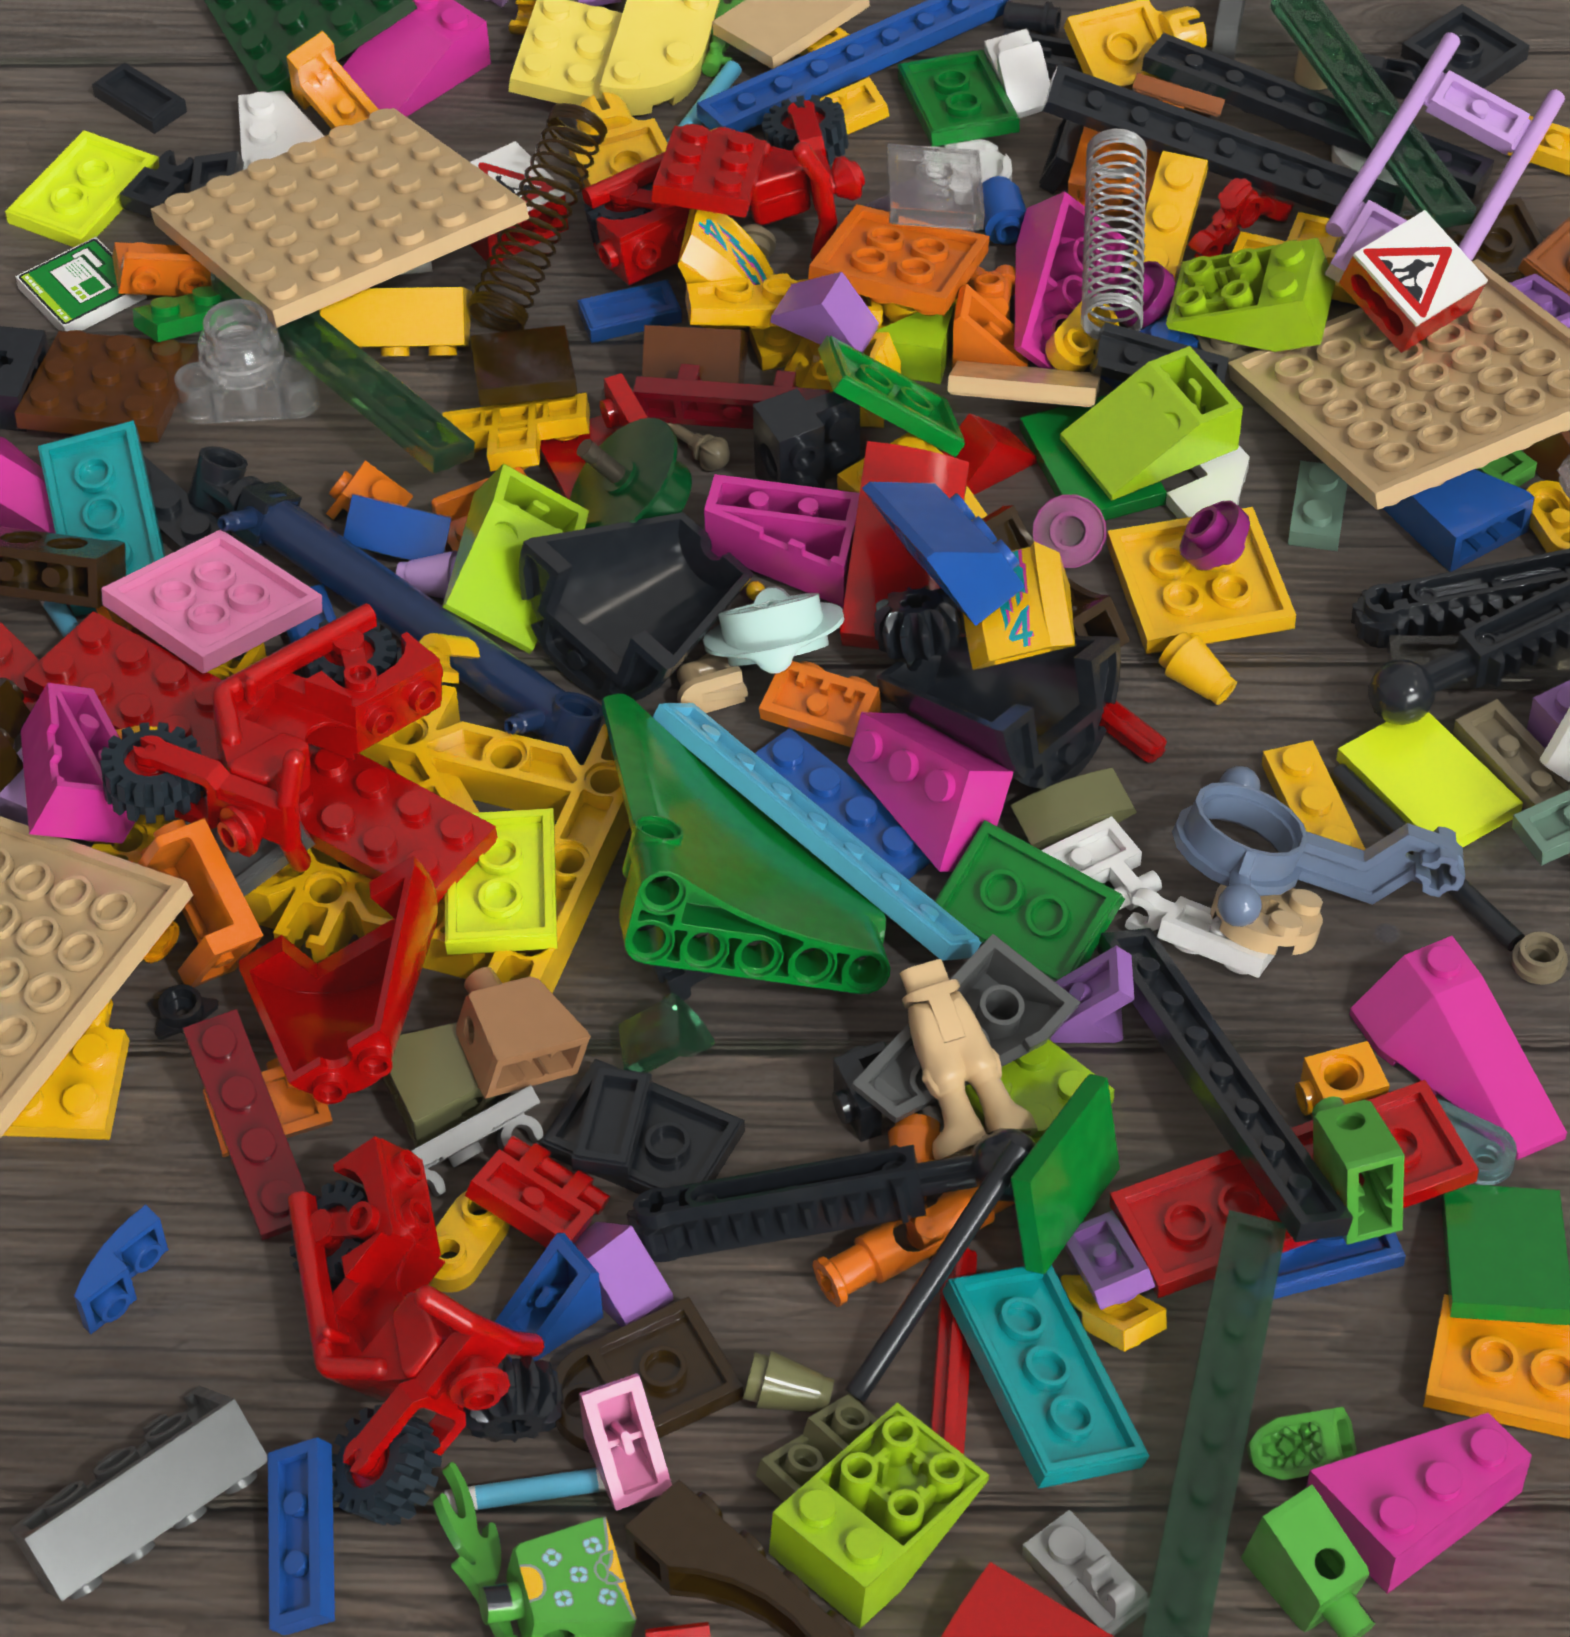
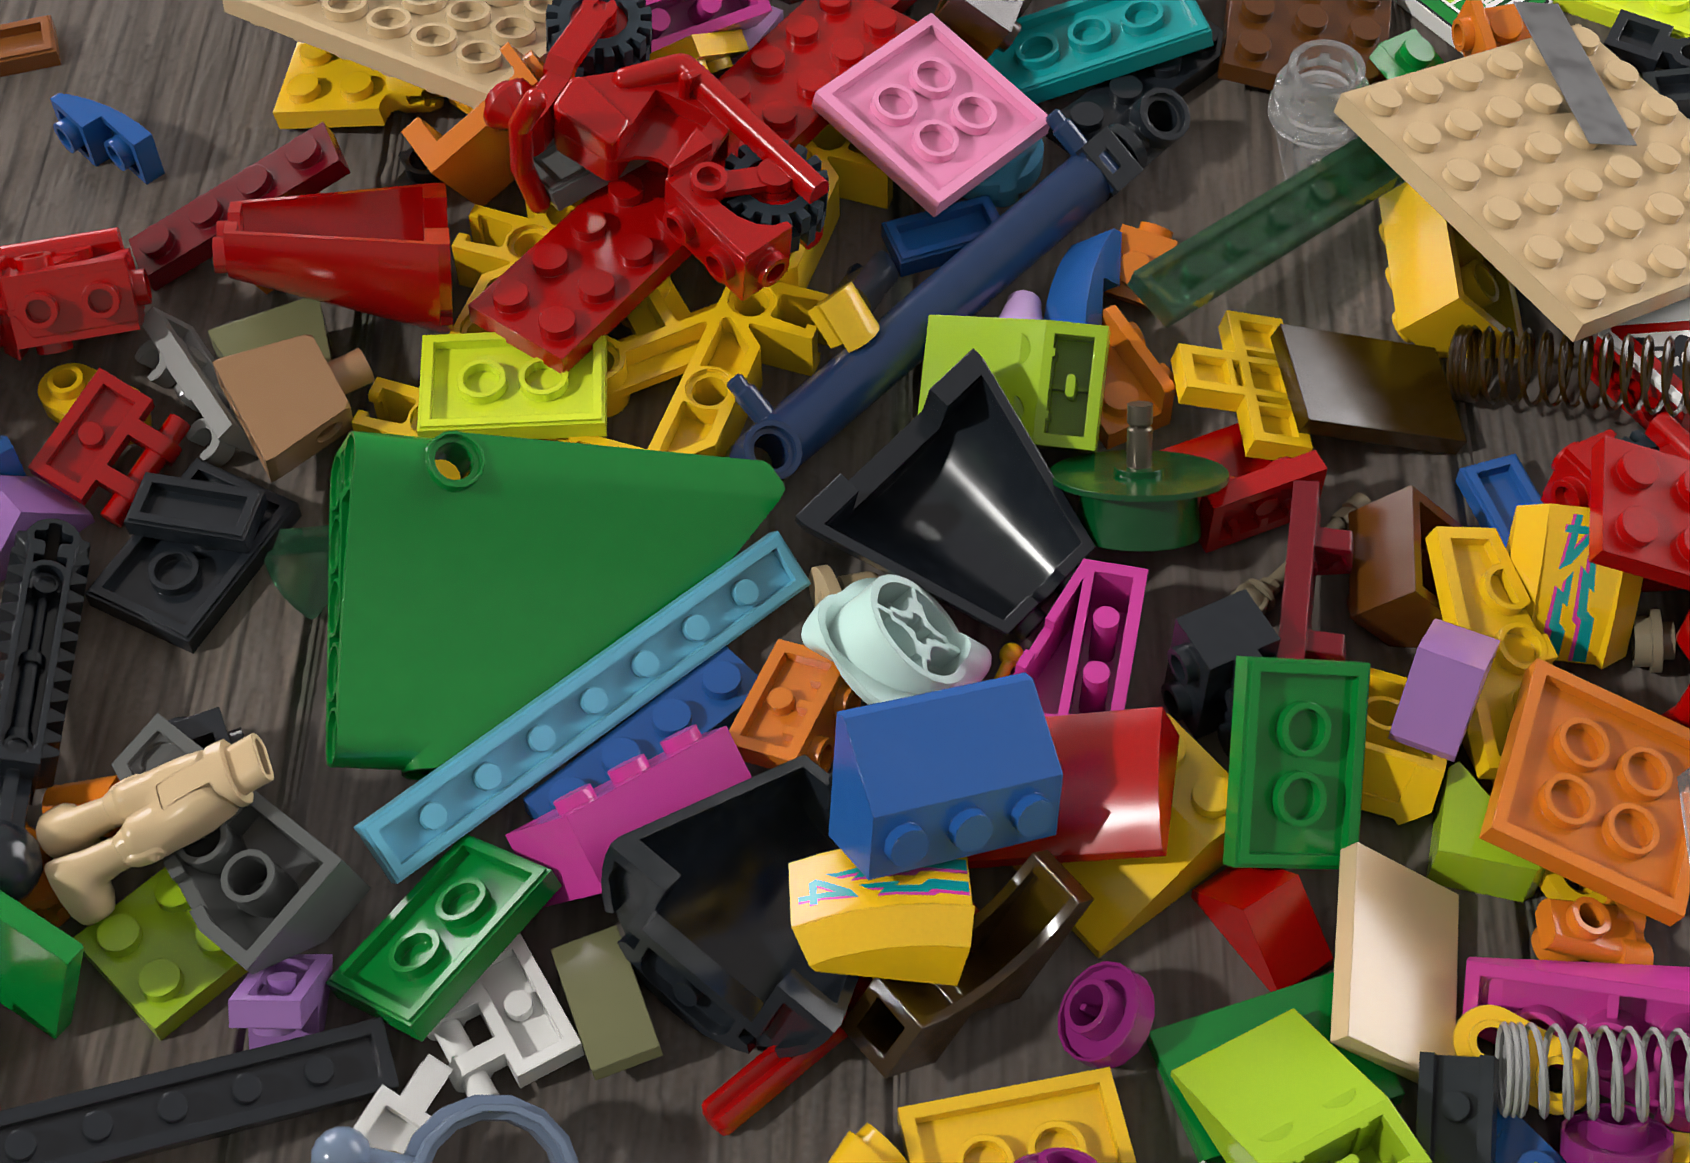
camera: 90 degrees right, 5 degrees up
(229, 202) = (1574, 74): none -> flat silver sticker
(983, 332) = (1498, 909): orange slope -> none

